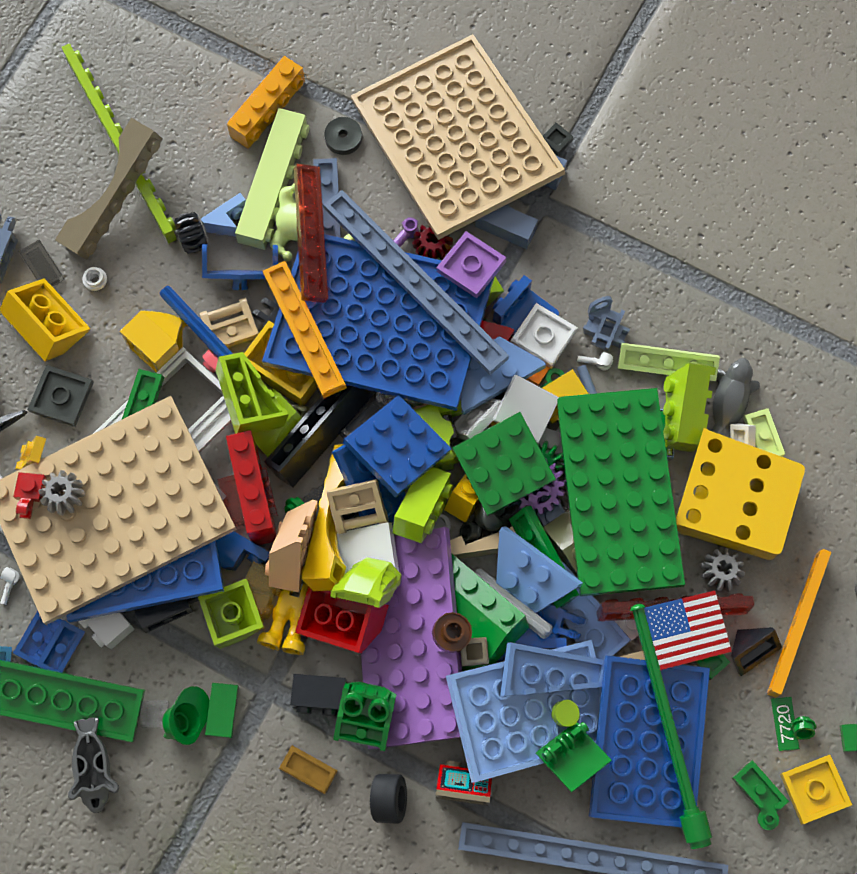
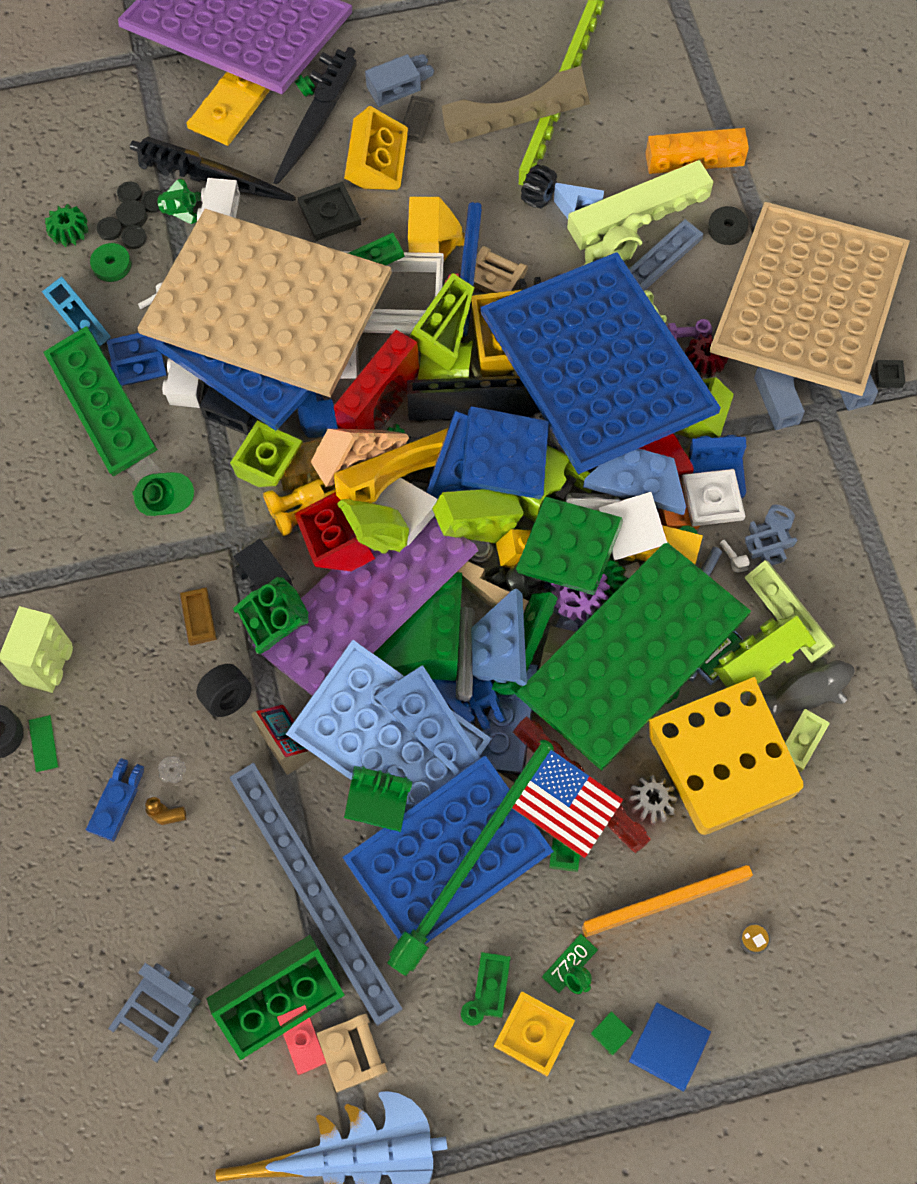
camera: 50 degrees right, 5 degrees down
(27, 492) = (225, 234): red plate -> none
(31, 452) = (265, 217): yellow plate -> none
(53, 498) = (243, 254): light grey gear -> none
(91, 767) = (64, 459): dark grey animal -> none
(92, 273) = (442, 154): white plate -> none
(222, 710) = (190, 516): green tile -> none
(238, 276) = (538, 249): blue piece -> none
(304, 330) = (534, 314): light orange tile -> none
(310, 233) = (615, 254): clear red plate -> none
(355, 499) = (433, 460): tan plate -> none
(417, 283) = (651, 359): sand blue plate -> none
(451, 632) = (390, 614): reddish brown plate -> none
(471, 264) = (708, 383): medium lavender plate -> none
(475, 652) = (392, 648): dark tan slope -> none
(565, 713) = (409, 764): lime tile -> none
(743, 433) = (786, 720): white plate -> none
(753, 647) = (609, 881): black slope -> none

